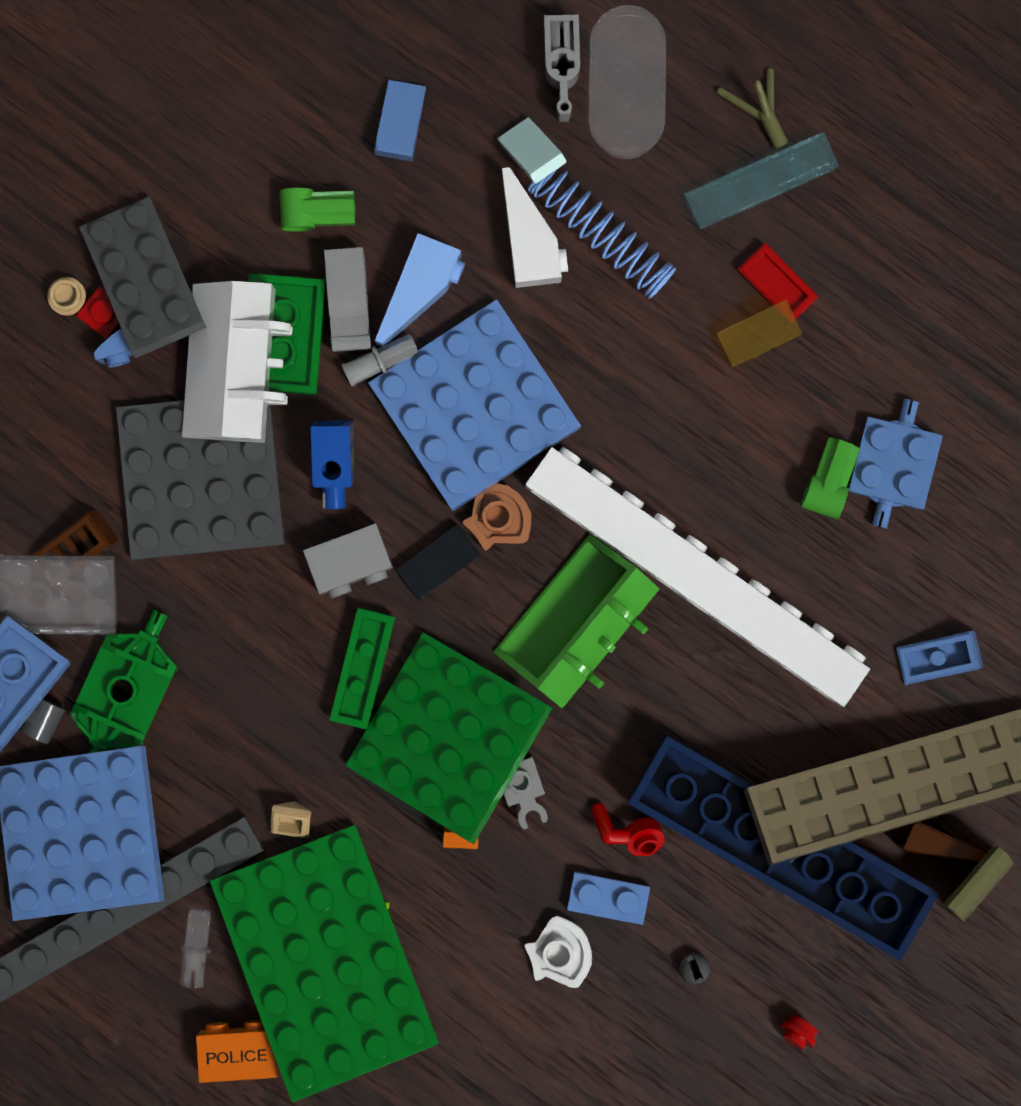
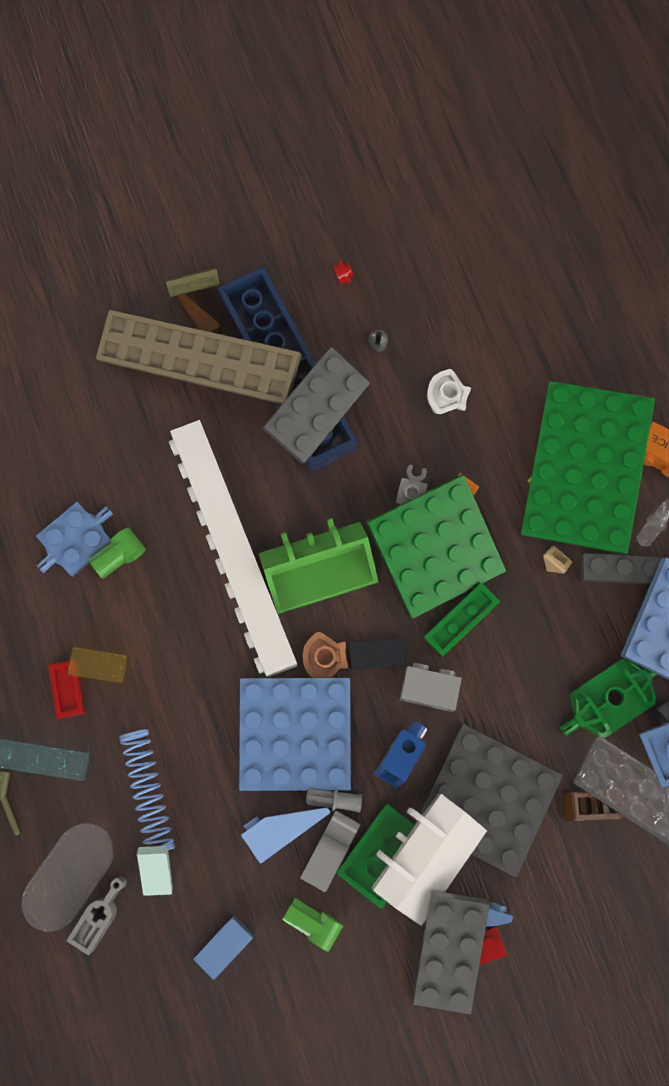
camera: 150 degrees left, 10 degrees down
(66, 296) = (505, 972): tan plate -> none
(531, 240) = (193, 813): white slope -> none
(608, 898) = (401, 406): medium blue plate -> none
(641, 836) = (362, 424): red plate -> none
(707, 812) = (316, 405): none -> dark grey plate
(940, 657) = (127, 417): medium blue slope -> none

